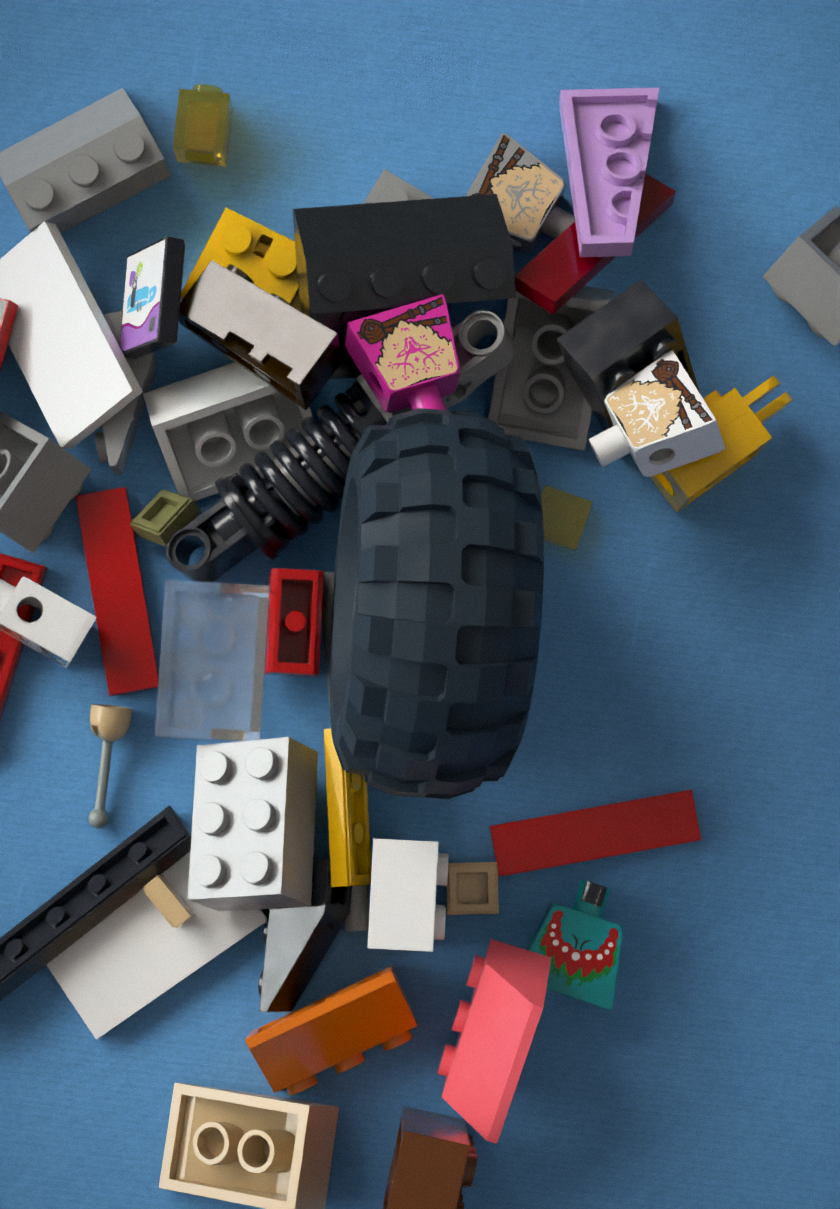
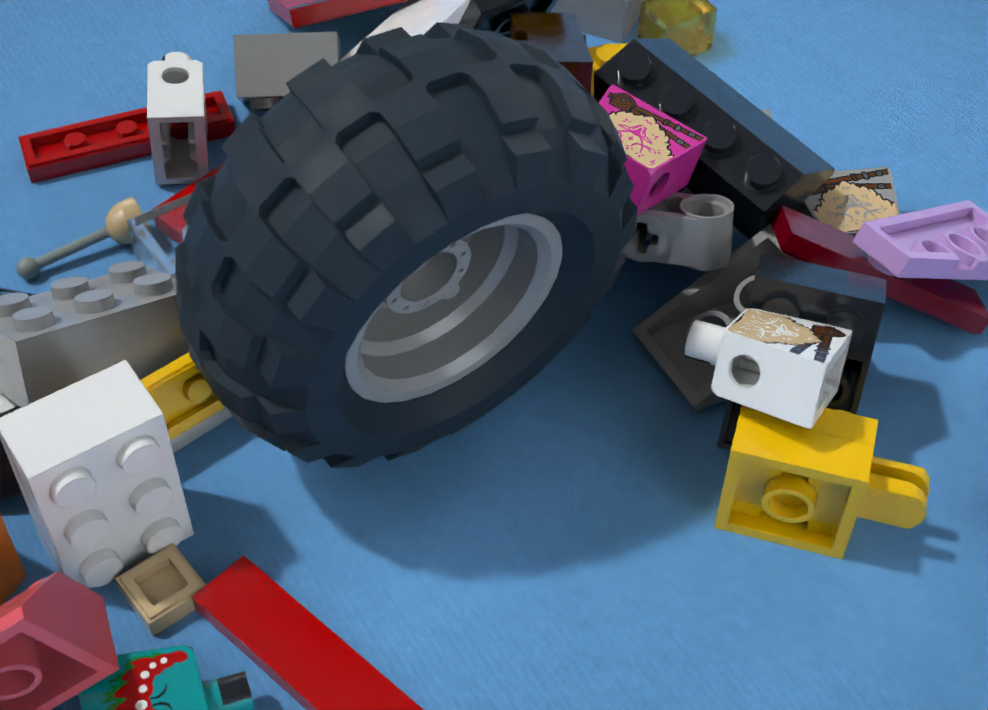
camera: 55 degrees right, 35 degrees down
(563, 517) = (611, 429): clear yellow tile -> none

